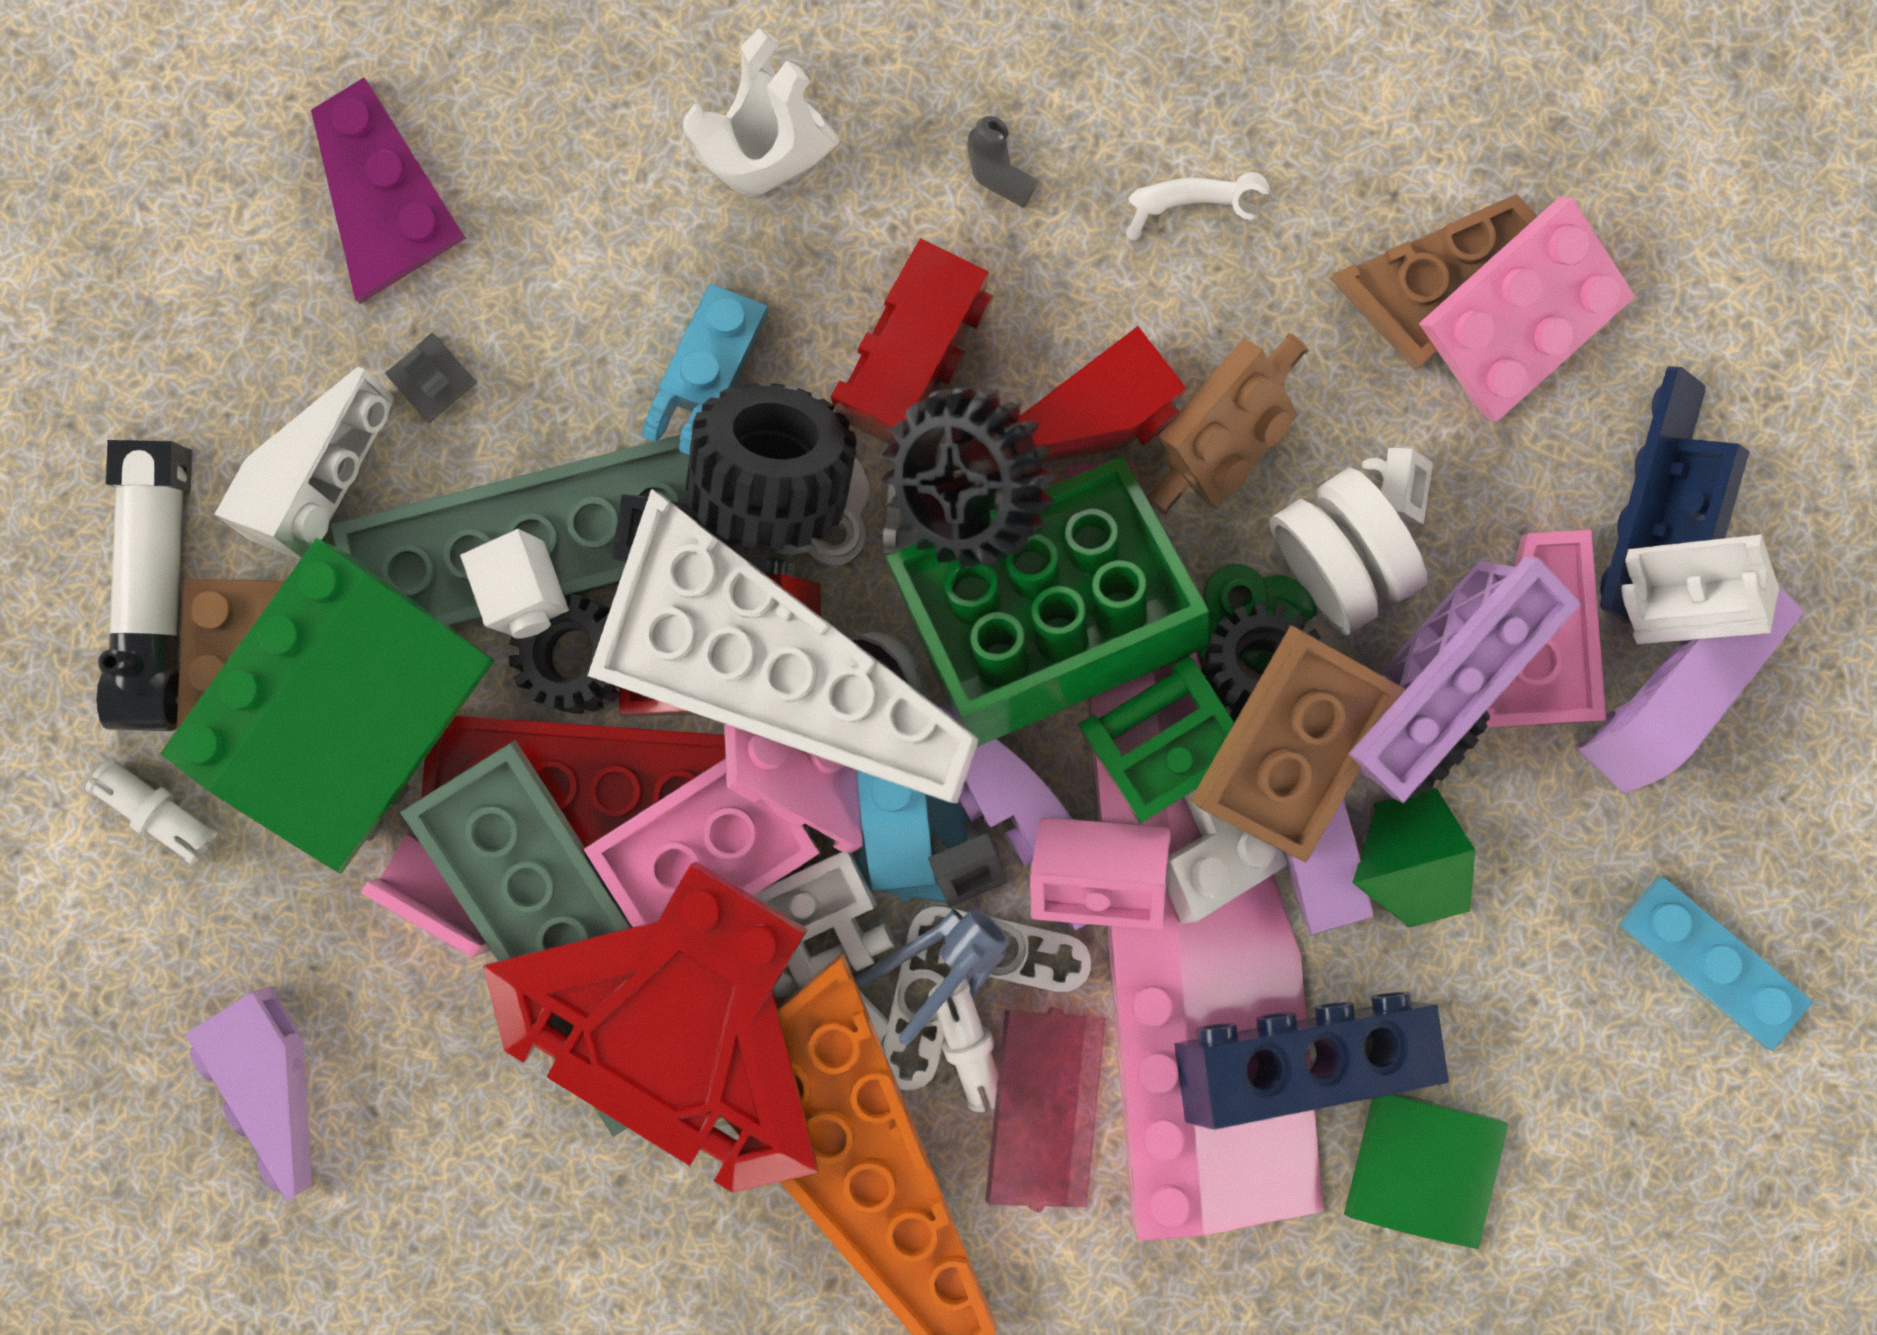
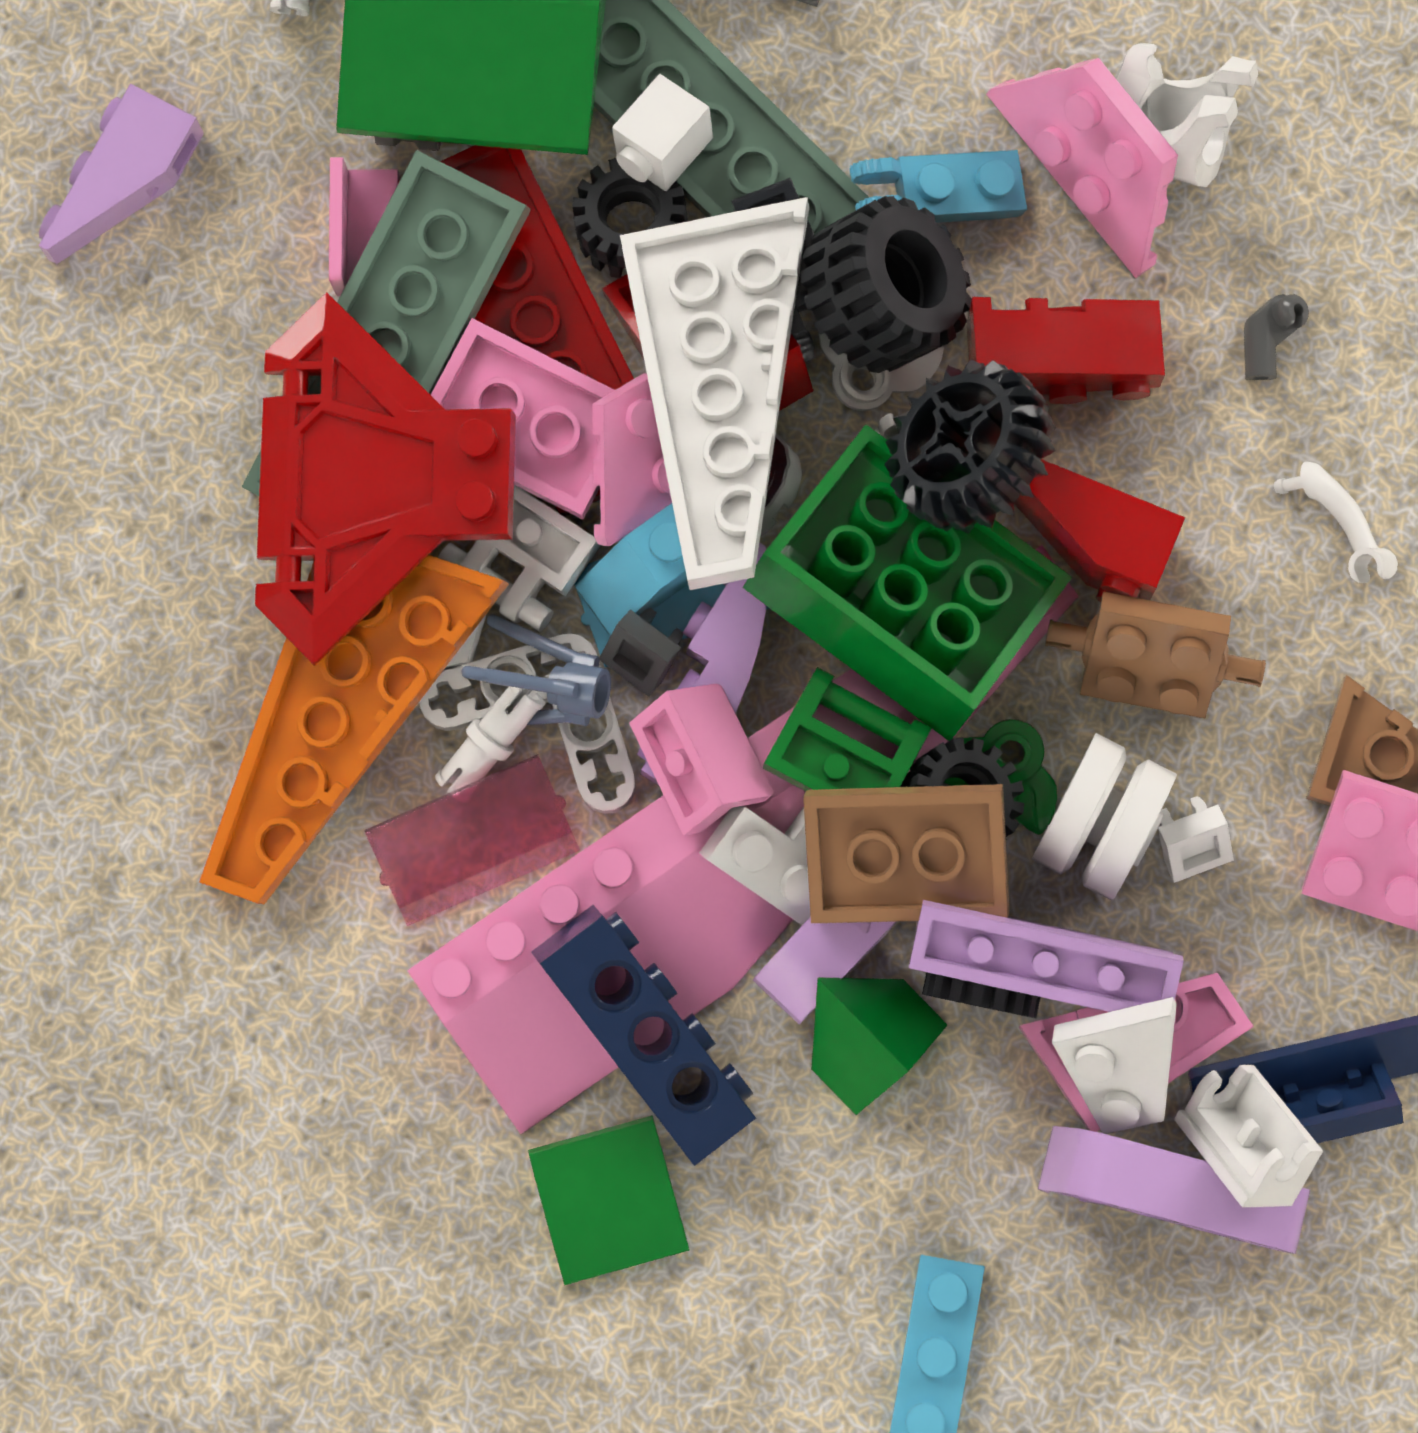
camera: 65 degrees right, 5 degrees down
(753, 213) = (1097, 151): none -> bright pink wing
(1583, 662) = (1121, 1062): none -> white wing

